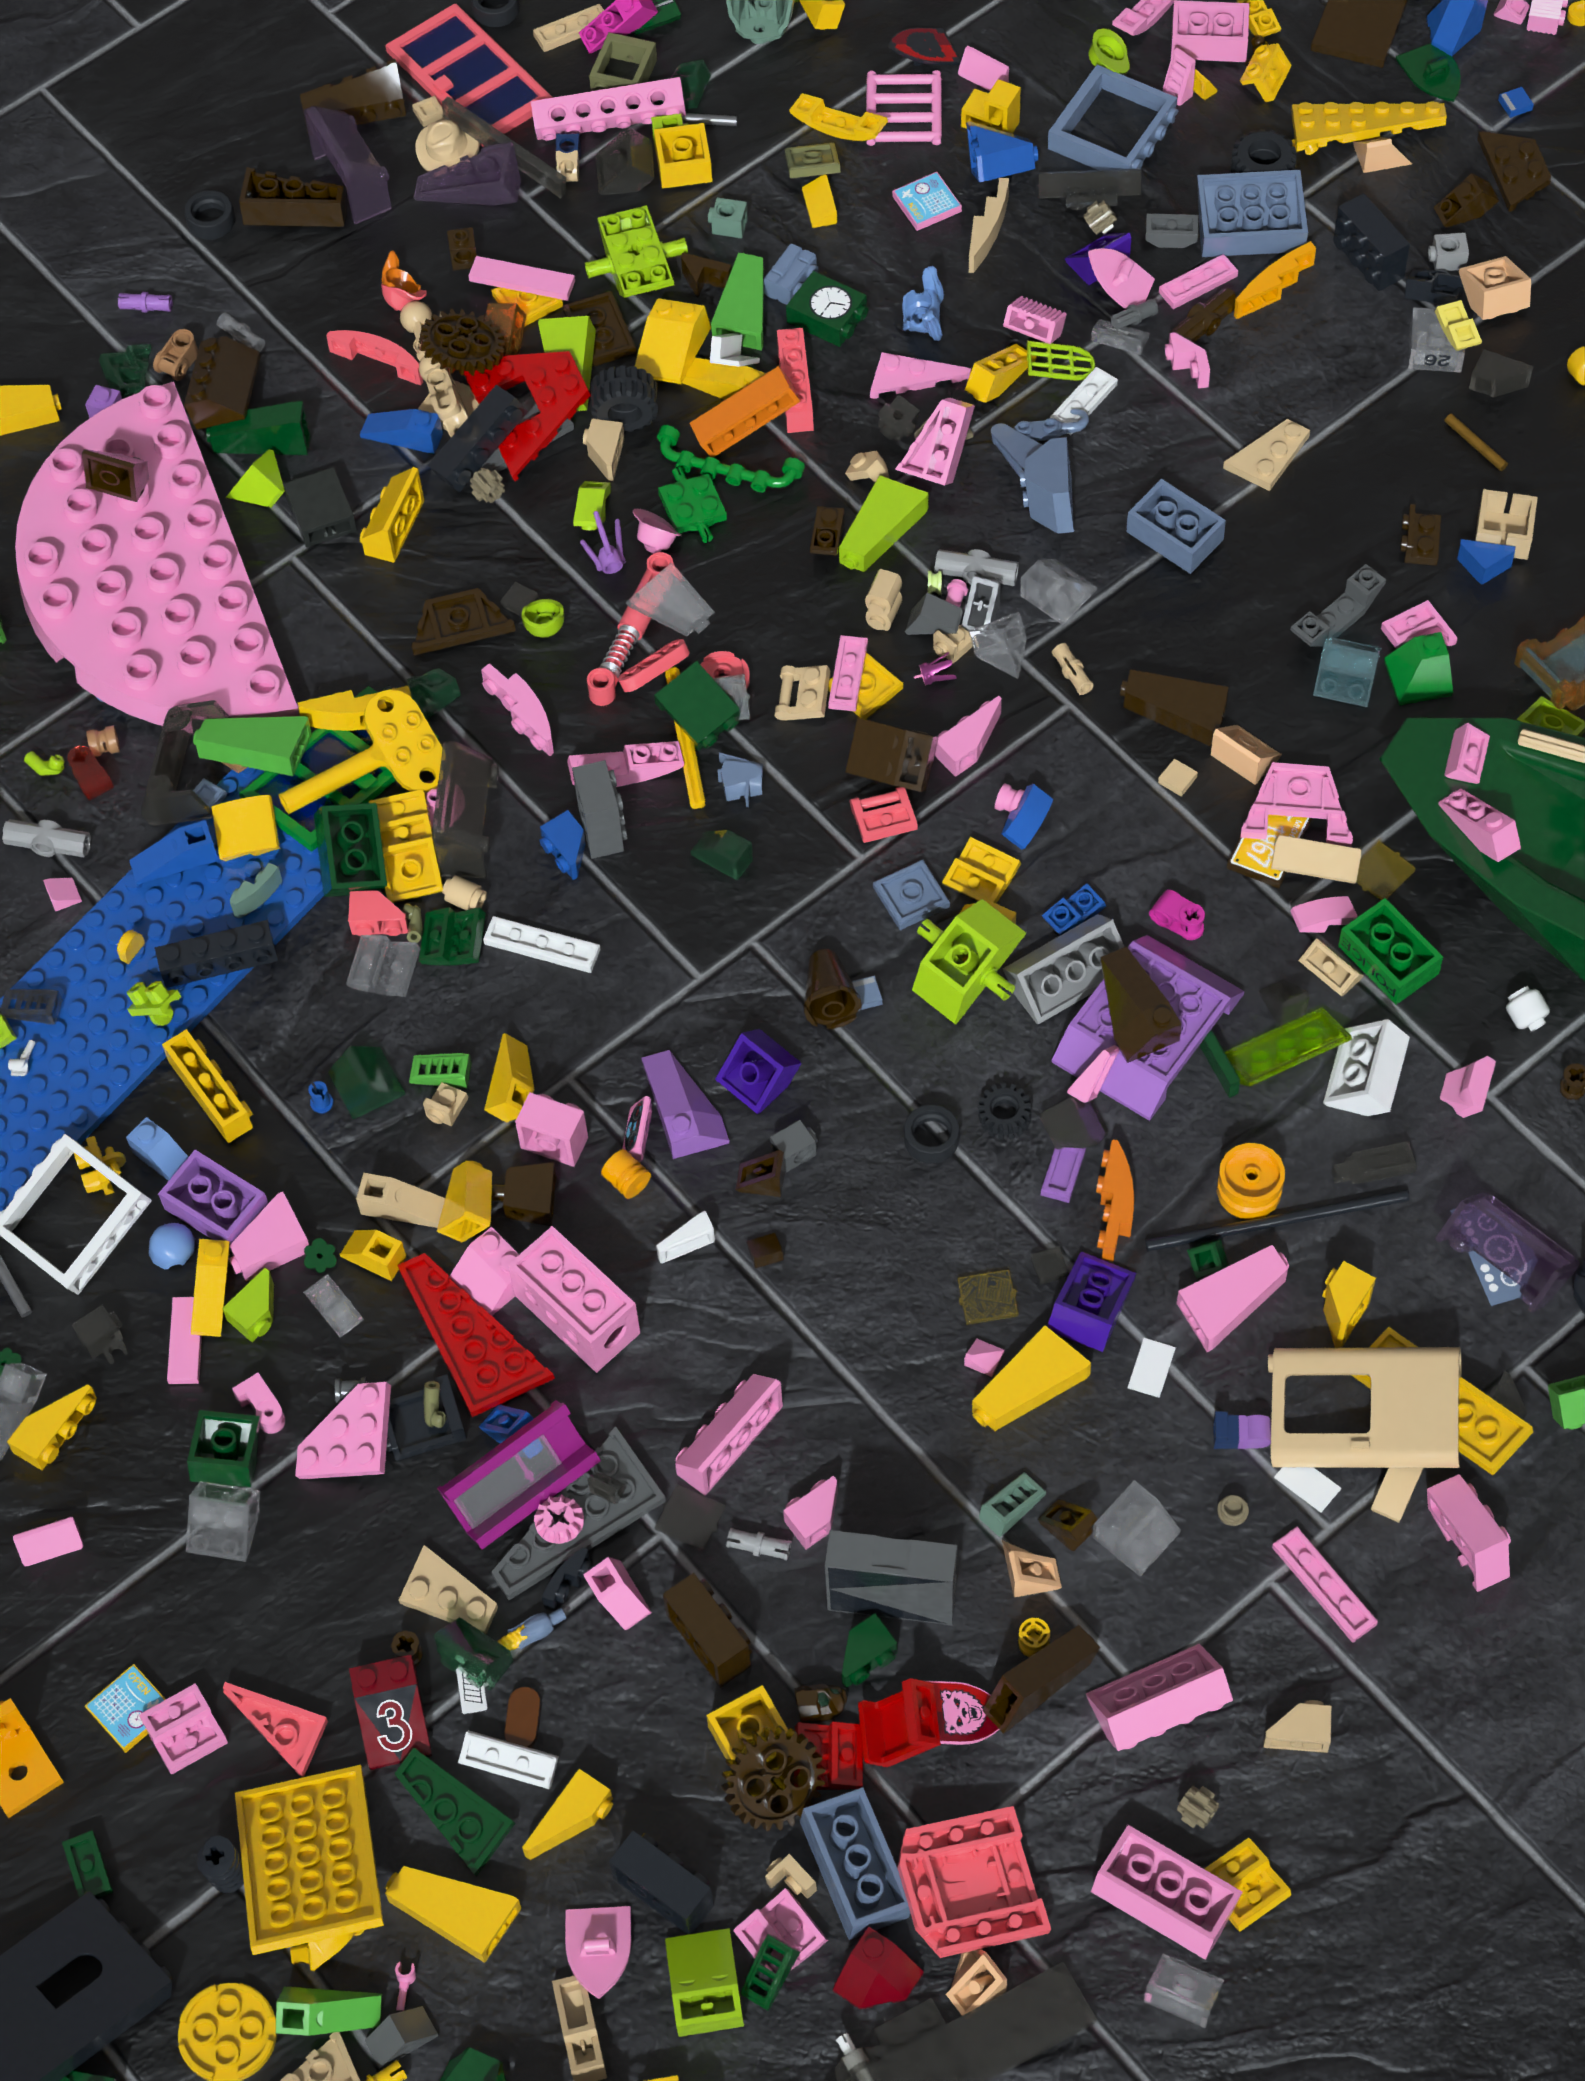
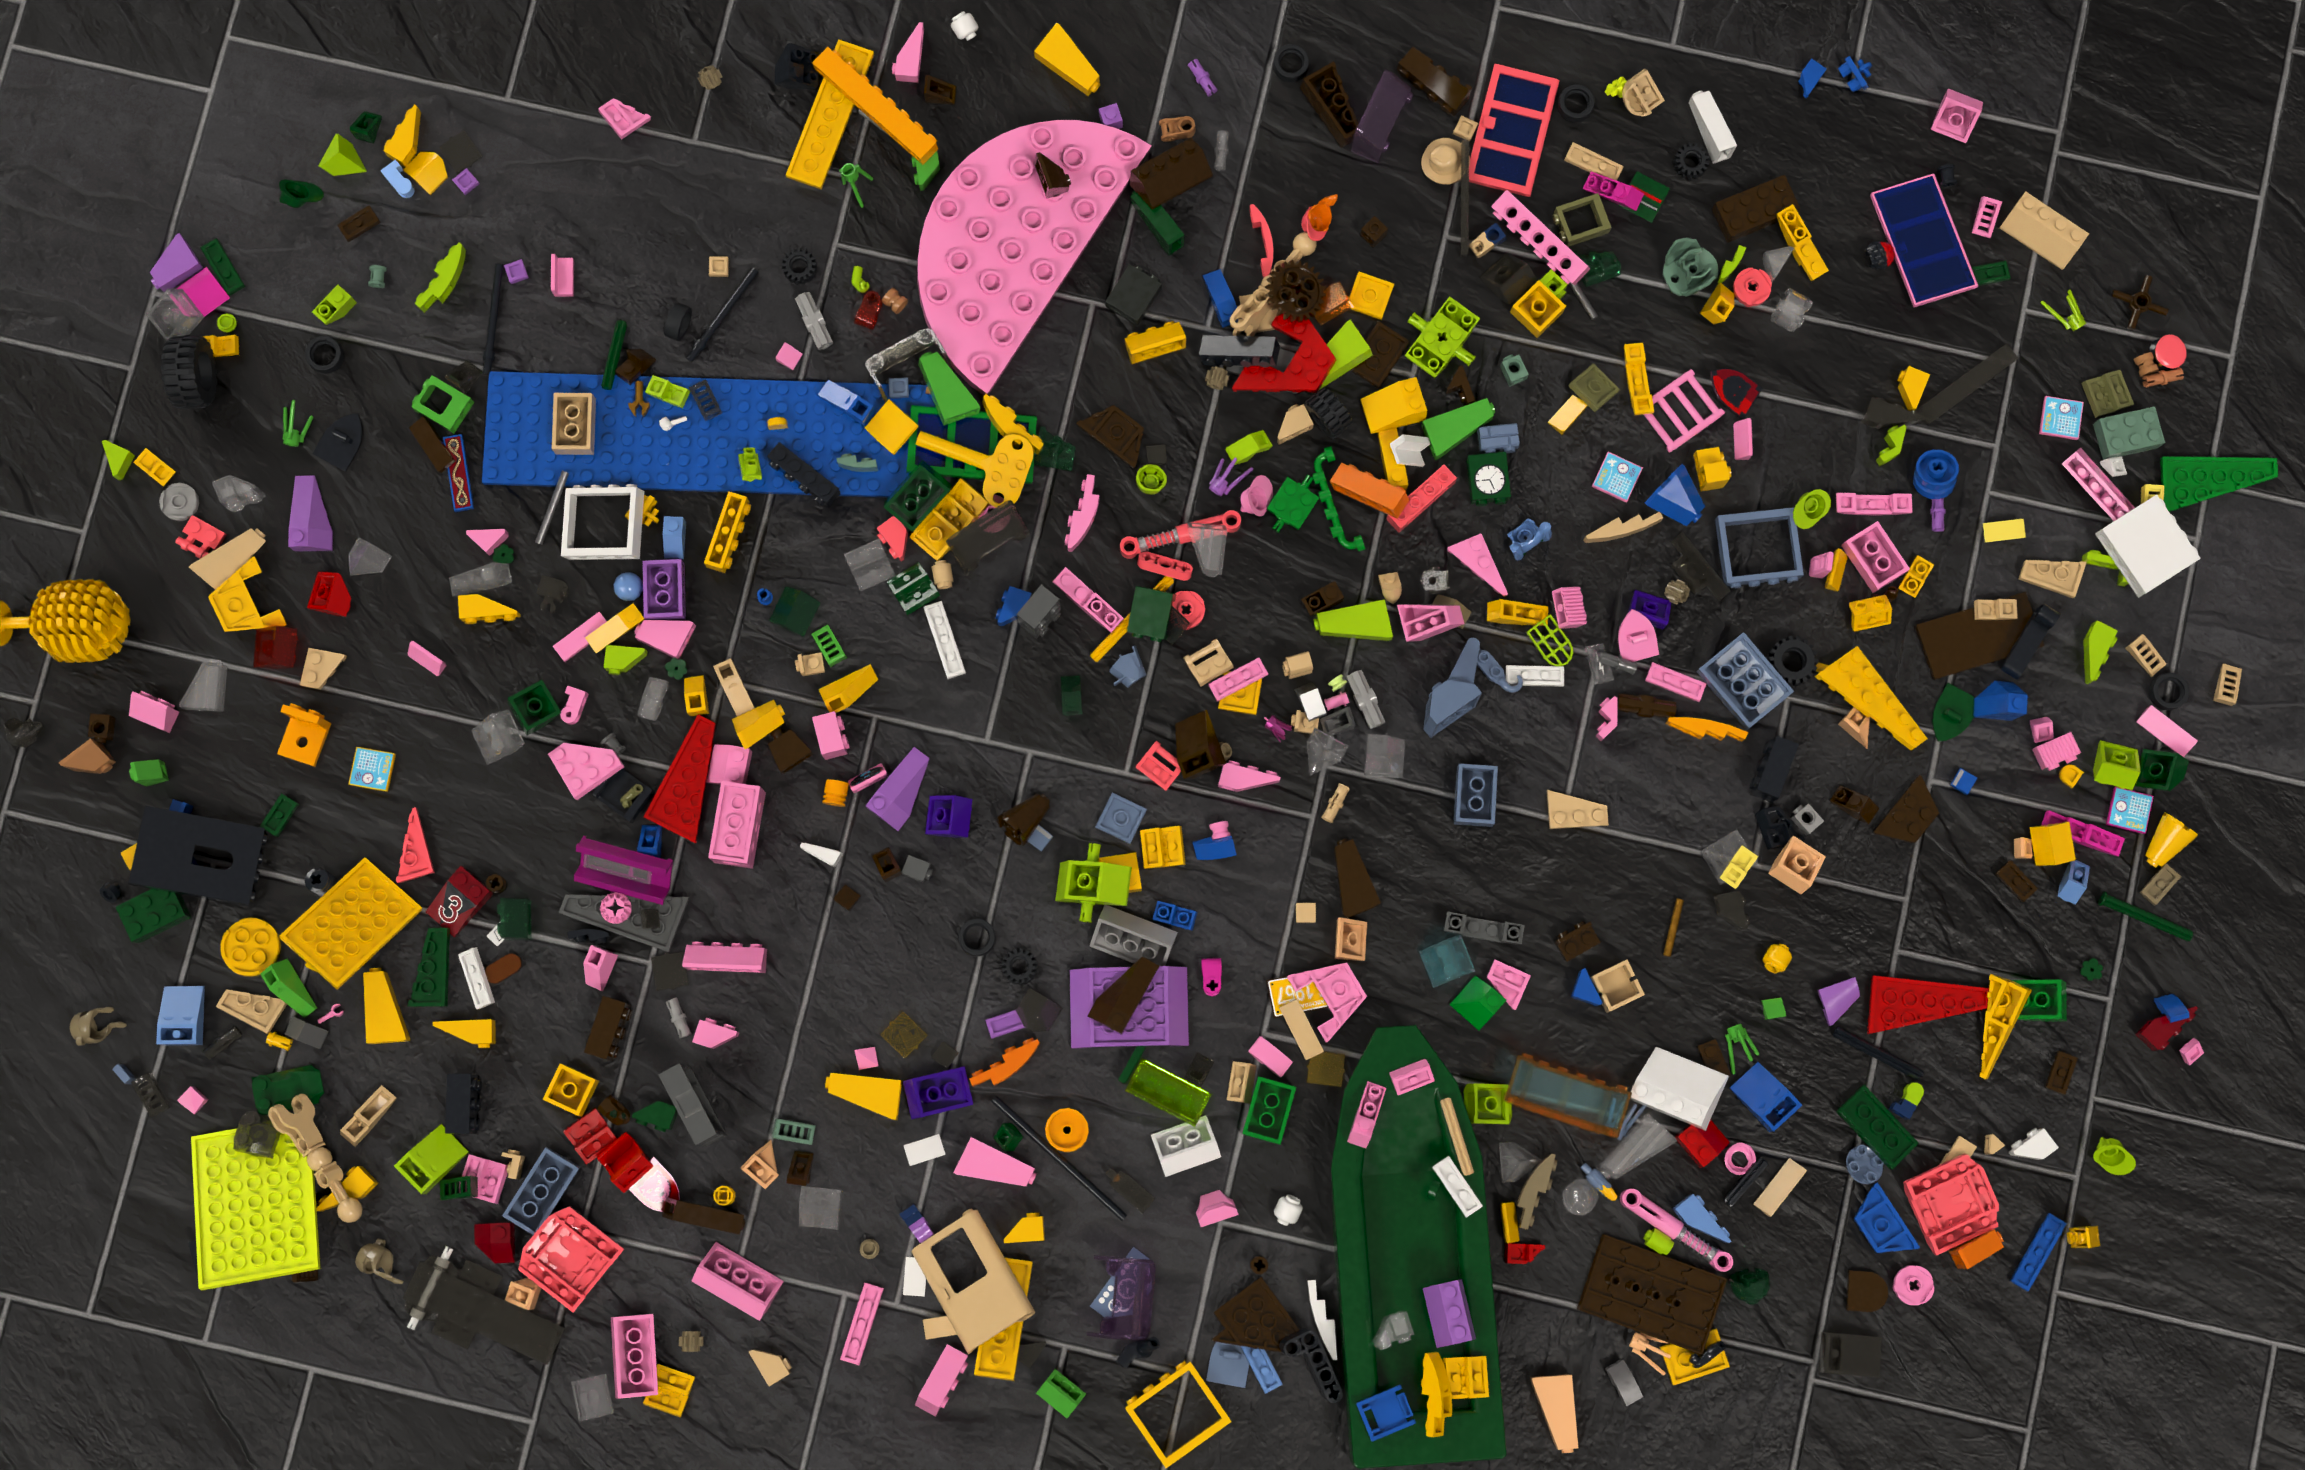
camera: 50 degrees right, 20 degrees up
(126, 369) = (1148, 106): clear green slope -> none
(183, 1729) = (379, 805): bright pink slope -> none
(260, 482) = (1126, 247): lime slope -> none
(415, 926) = (905, 563): olive arm -> none
(445, 1593) = (540, 880): tan wing -> none
(479, 180) = (1433, 200): clear purple wedge -> none
(522, 278) = (1377, 283): bright pink tile -> none
(532, 1629) = (550, 937): sand blue piece -> none
(598, 1946) = (414, 1094): bright pink shield -> none
(752, 1764) = (551, 1120): dark brown gear -> none
(1091, 1080) = (1066, 1002): bright pink slope -> none
(1171, 230) = (1702, 639): dark grey slope -> none

